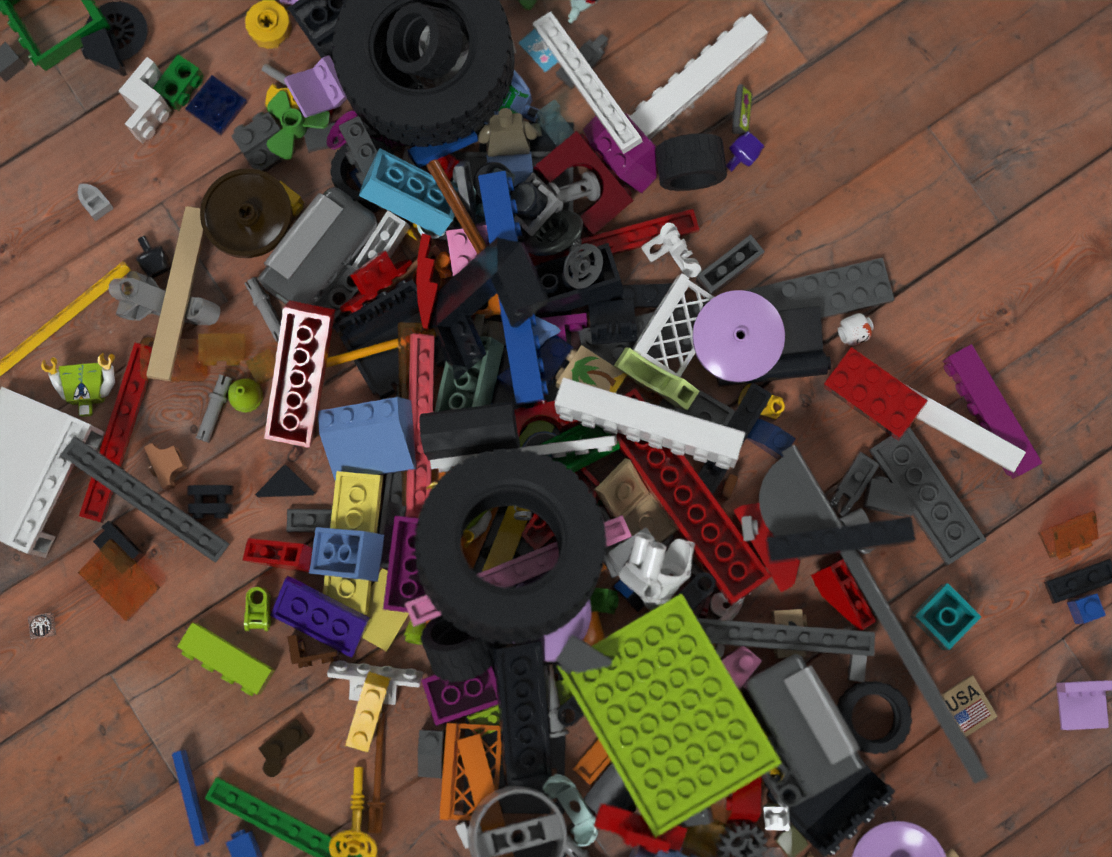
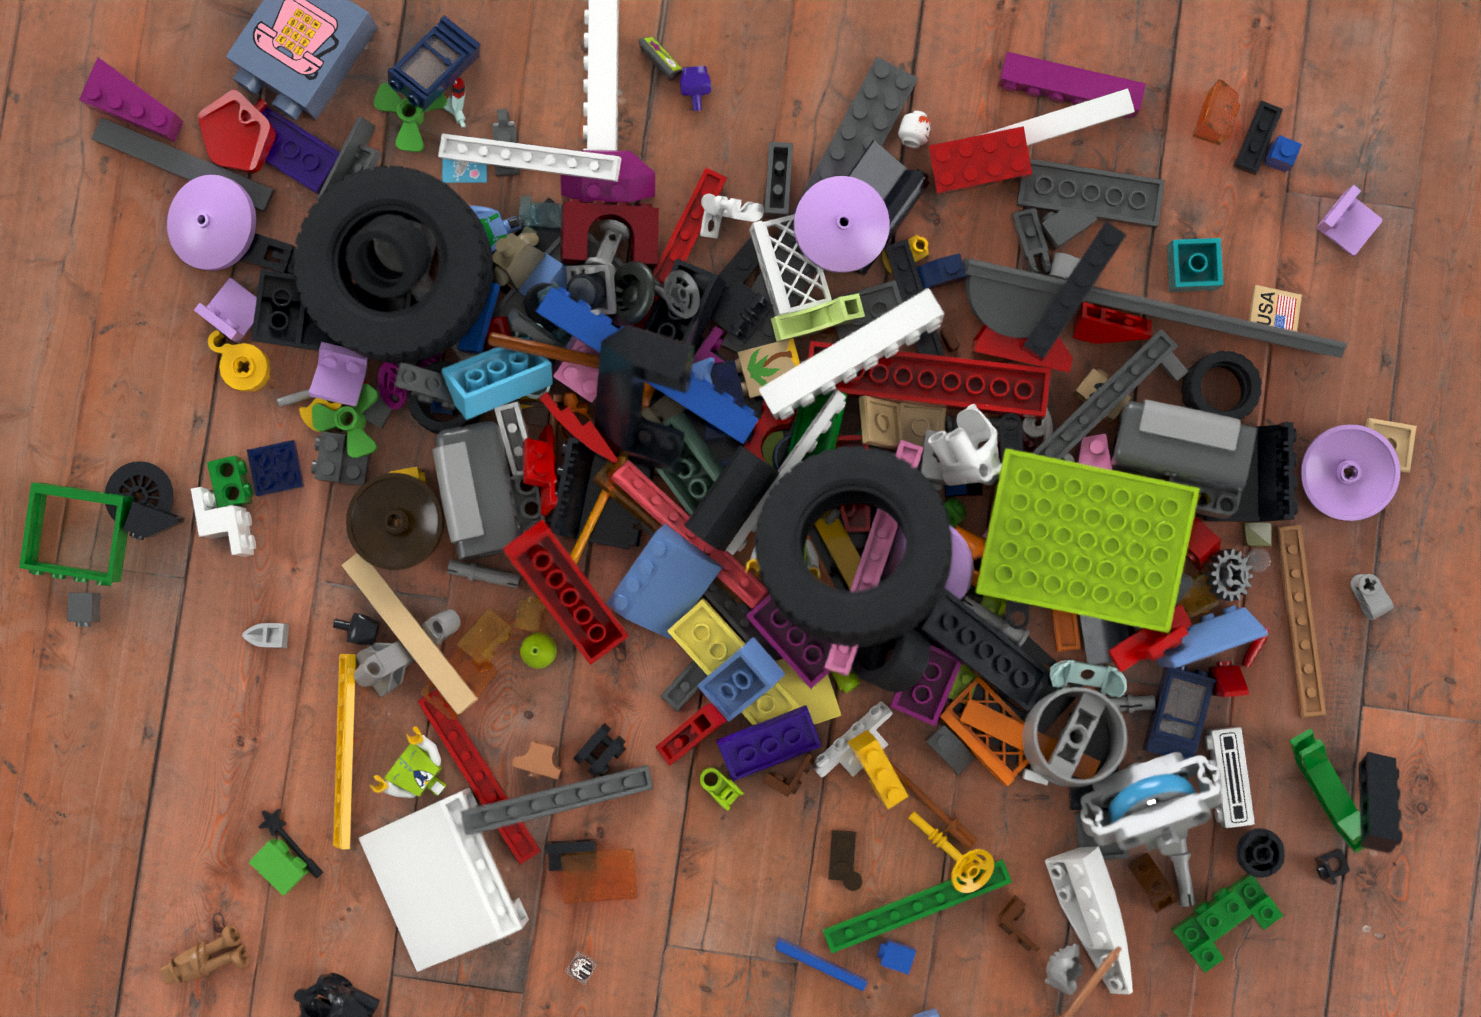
camera: 45 degrees left, 5 degrees up
(214, 408) = (527, 684): light grey pin -> none
(225, 658) = (736, 845): lime brick -> none
(285, 484) = (638, 680): black tile -> none
(581, 657) = (987, 567): dark grey slope -> none
(691, 162) = (670, 135): black tyre -> none
(750, 528) = (1001, 351): light grey plate -> none
(776, 817) = (1229, 529): white tile -> none

